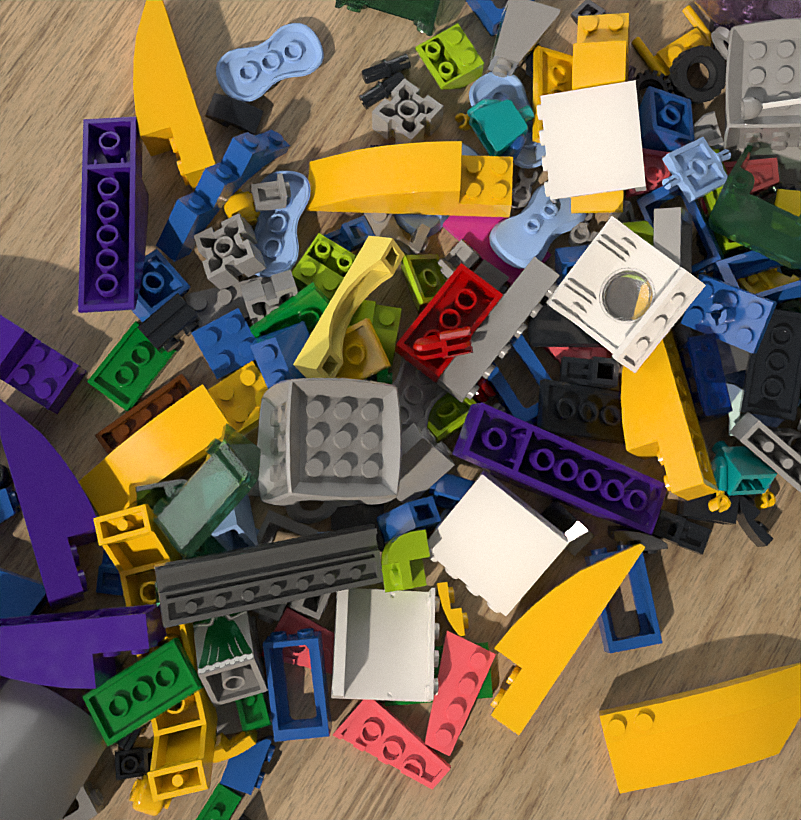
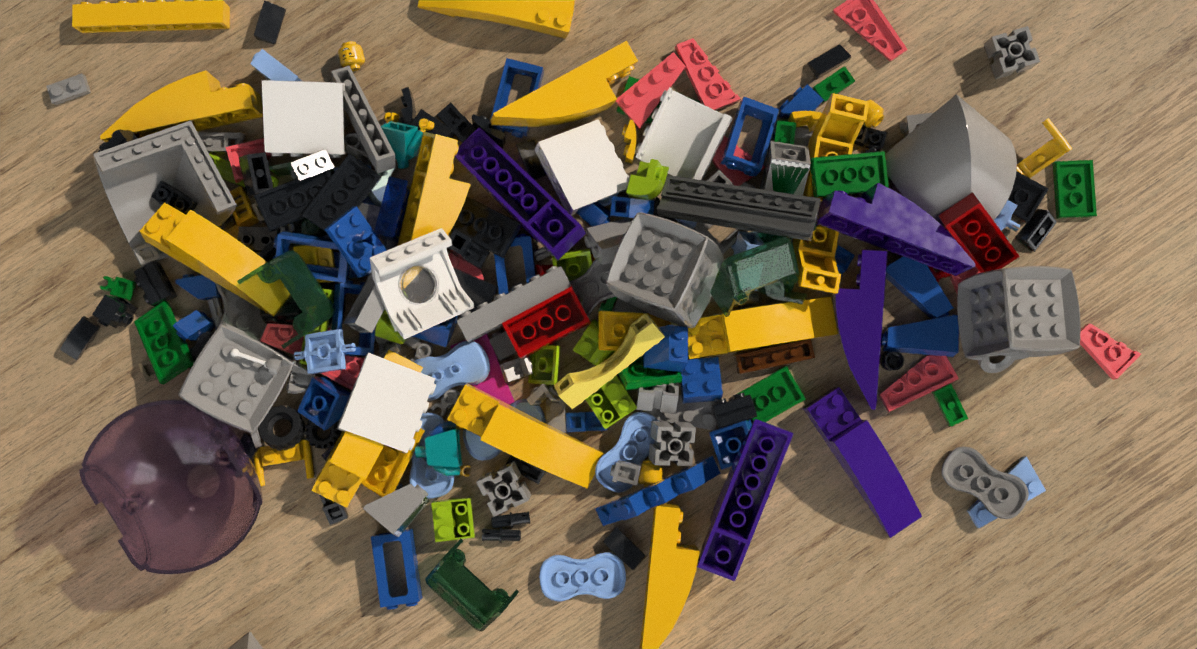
camera: 145 degrees left, 5 degrees up
(444, 344) = (559, 303): red arm -> none

